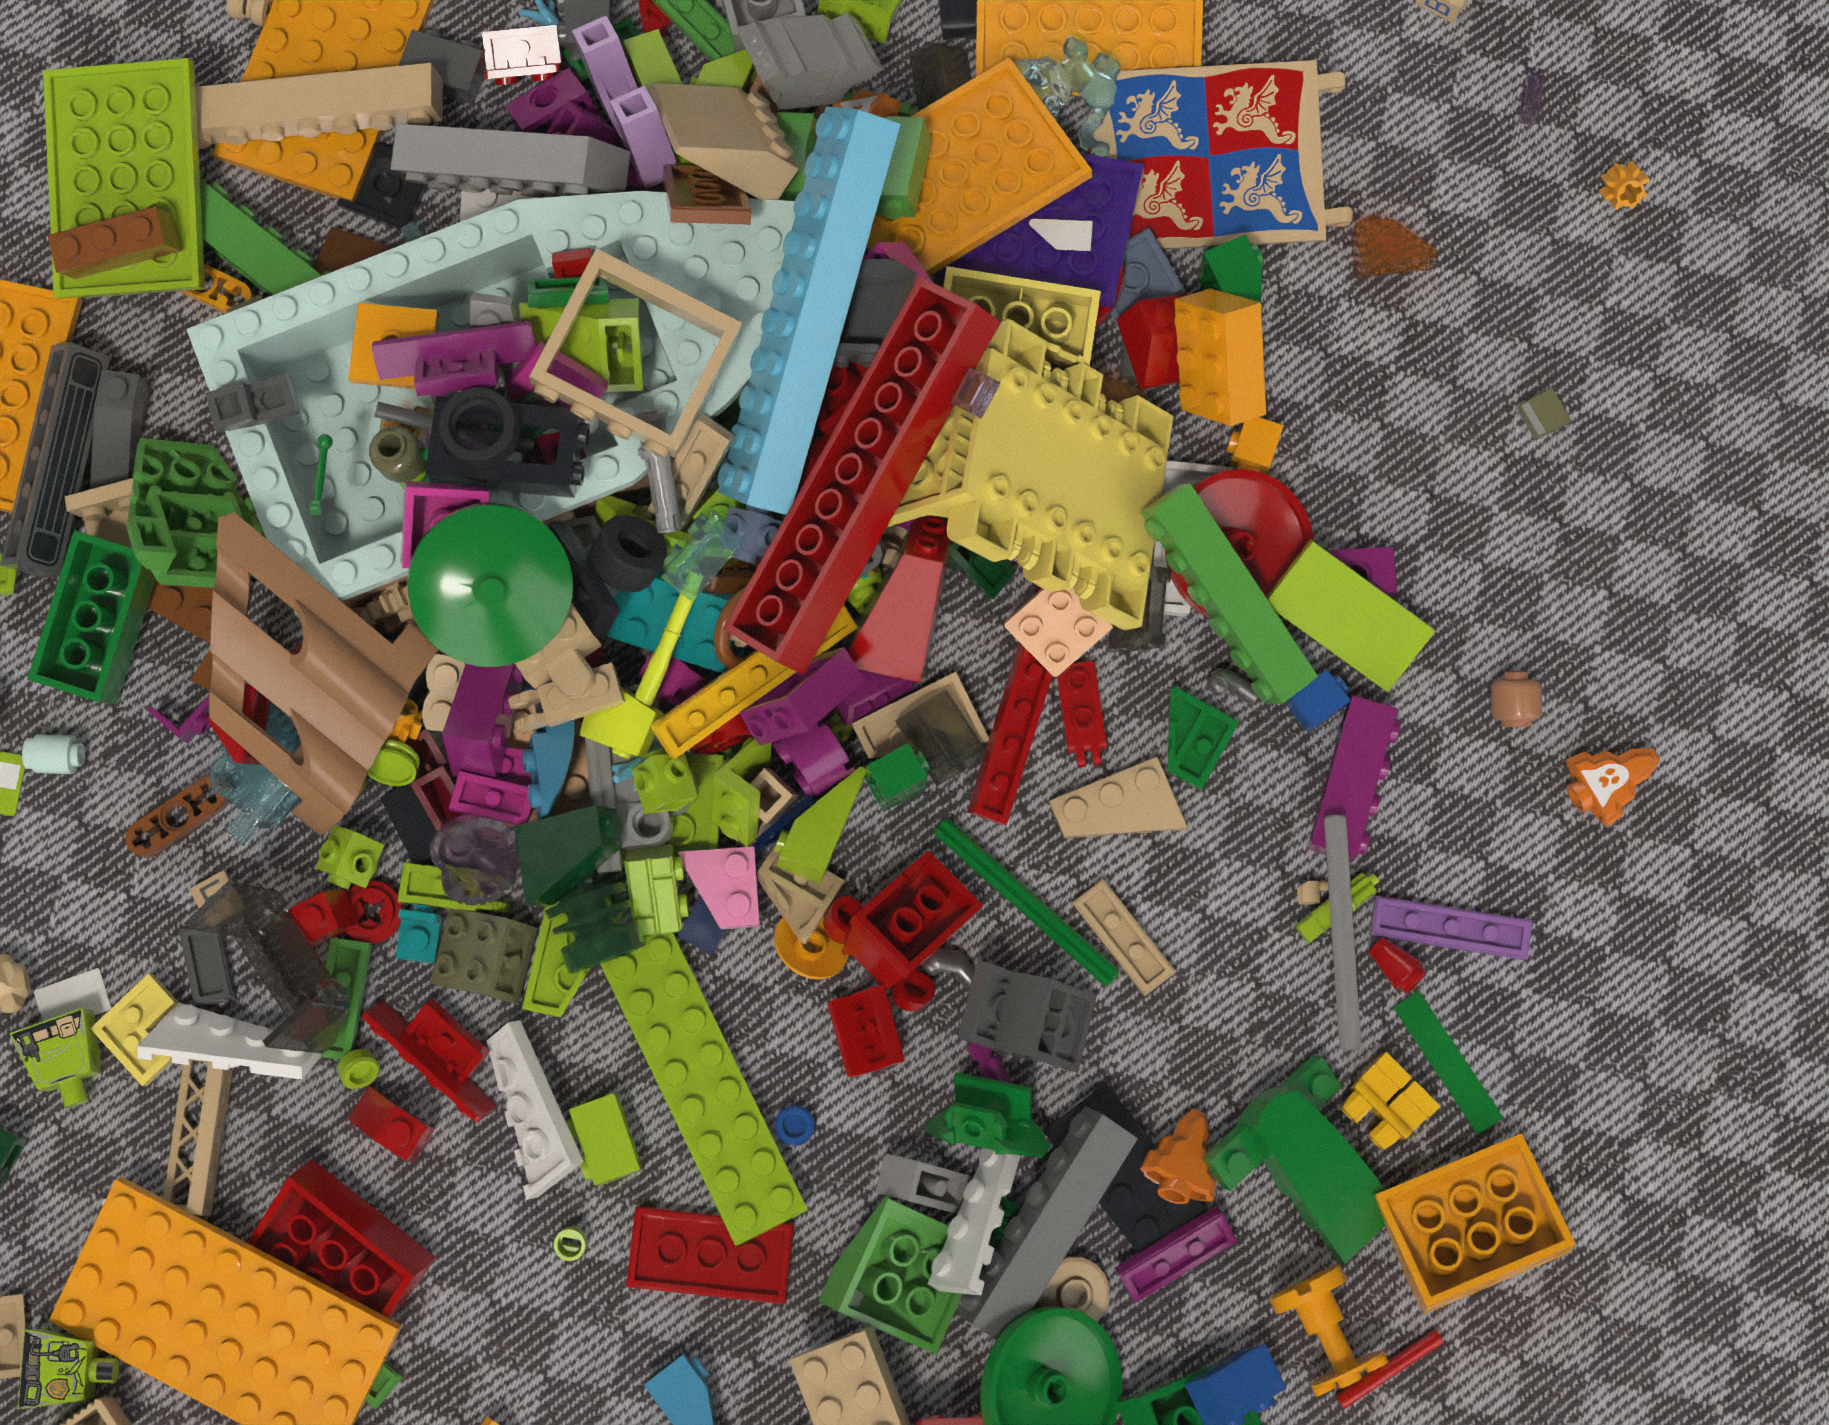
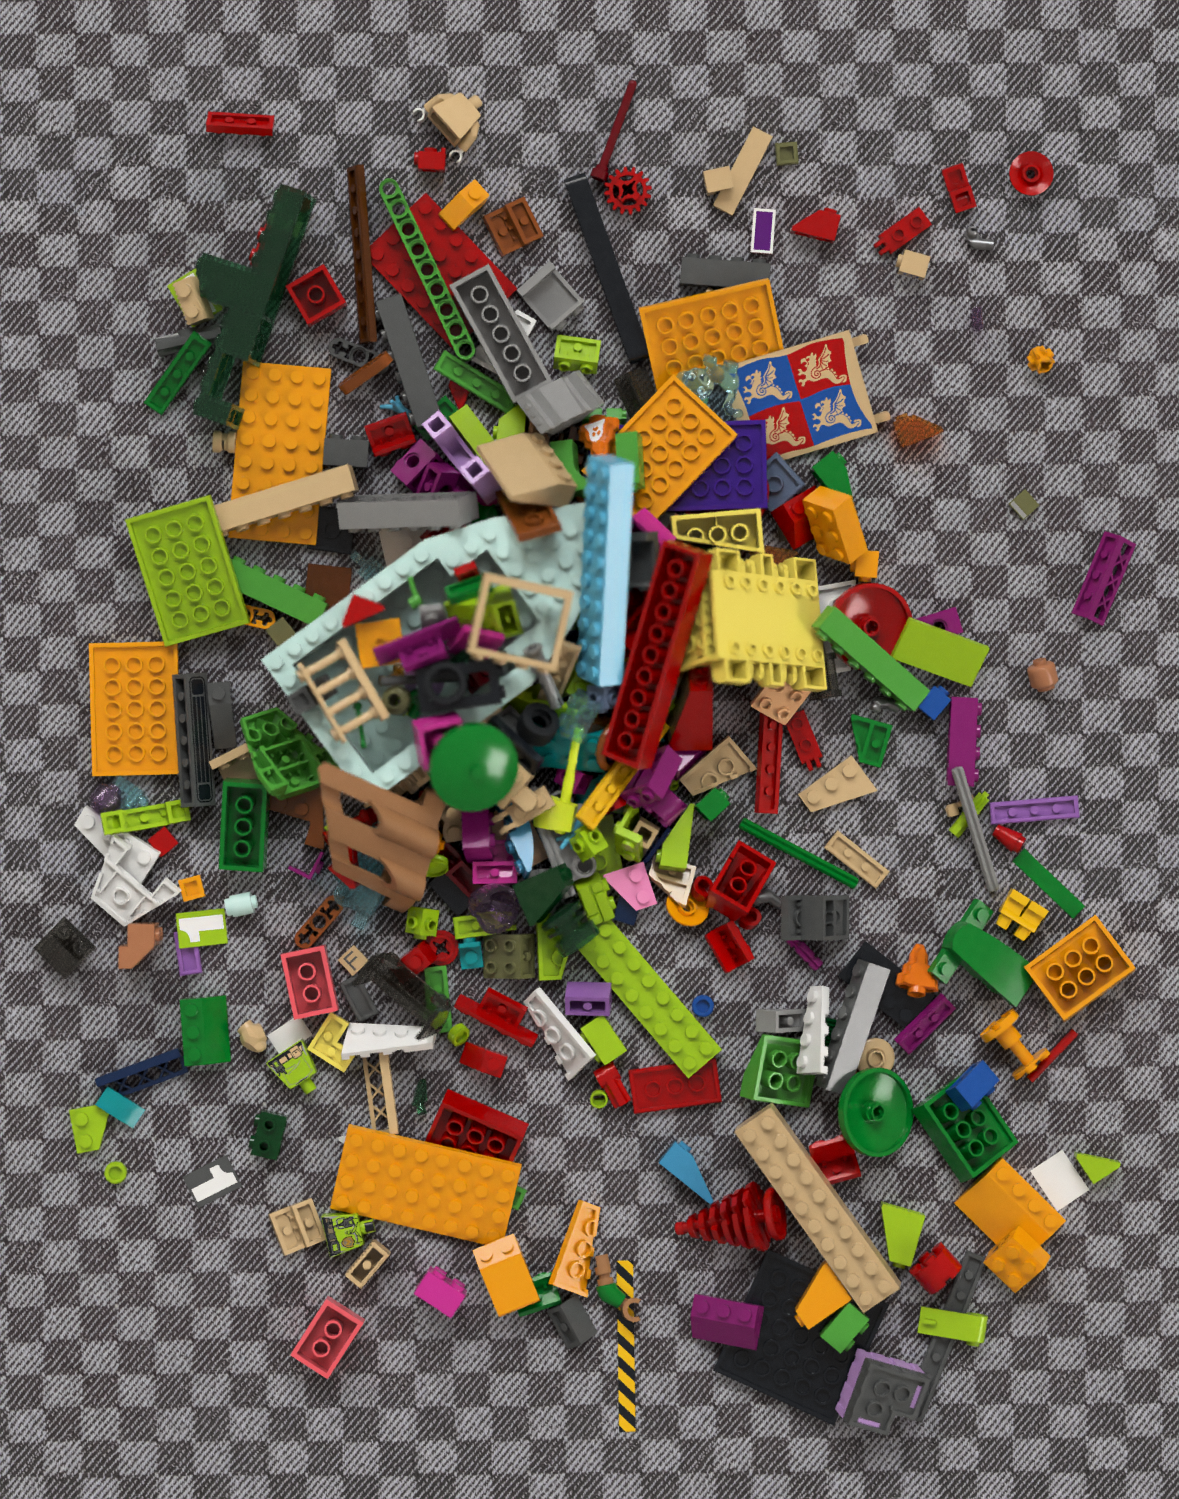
camera: 20 degrees left, 10 degrees up
(114, 243) = (196, 611): dark orange brick -> none
(127, 912) = (309, 982): none -> coral brick
(263, 1163) = (420, 1097): none -> clear green bar
(332, 380) = (353, 672): none -> tan fence
(373, 281) = (360, 609): none -> red slope
(475, 284) = (415, 600): none -> bright green hand
(597, 1061) = (588, 998): none -> medium lavender brick
(599, 1214) = (610, 1080): none -> red piece
(941, 736) = (731, 775): clear smoke panel -> none
(975, 393) = (709, 598): tile -> none
(990, 1117) = (808, 977): green piece -> none
(1065, 233) = (730, 473): white sticker -> none
(1608, 780) = (1103, 707): orange rock -> none
(1652, 558) = (1101, 576): none -> magenta fence

